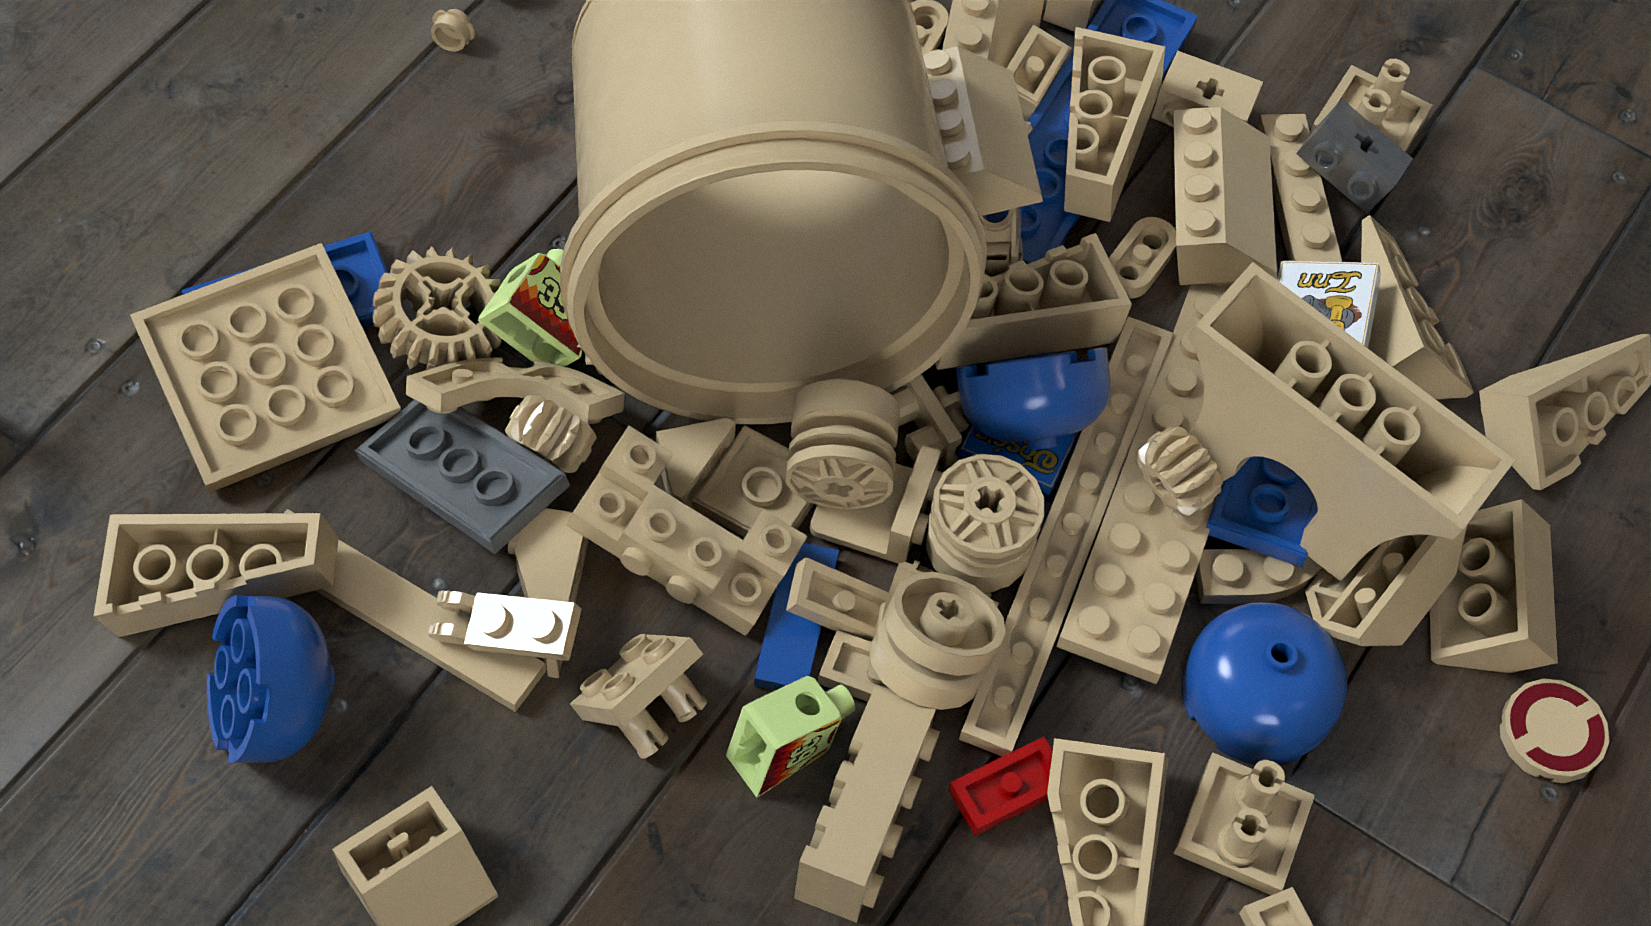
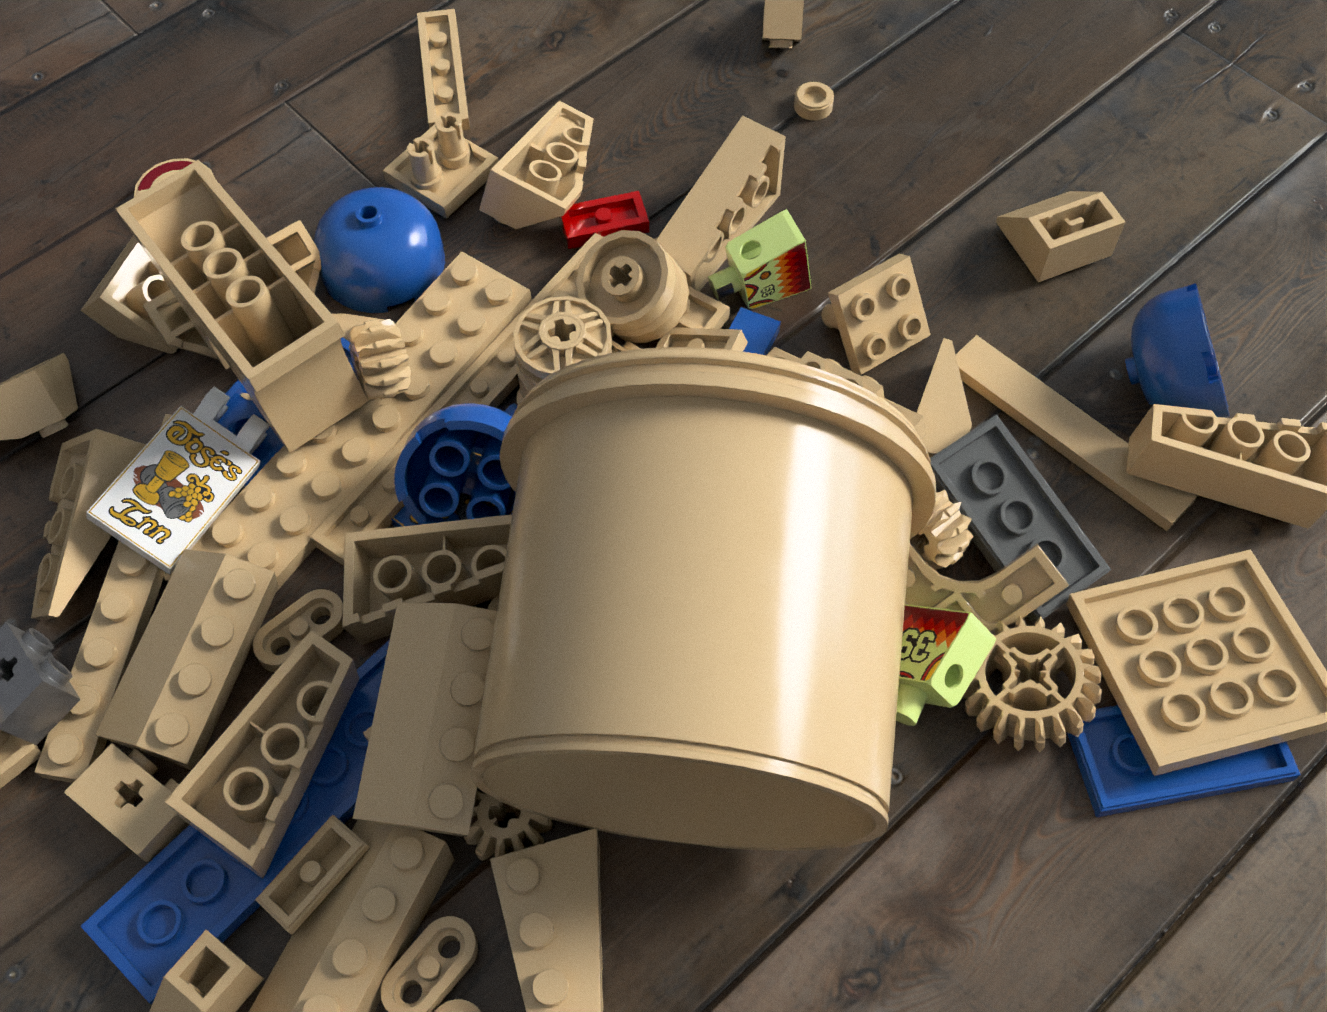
camera: 160 degrees left, 0 degrees up
(510, 624) = (985, 367): hinge -> none

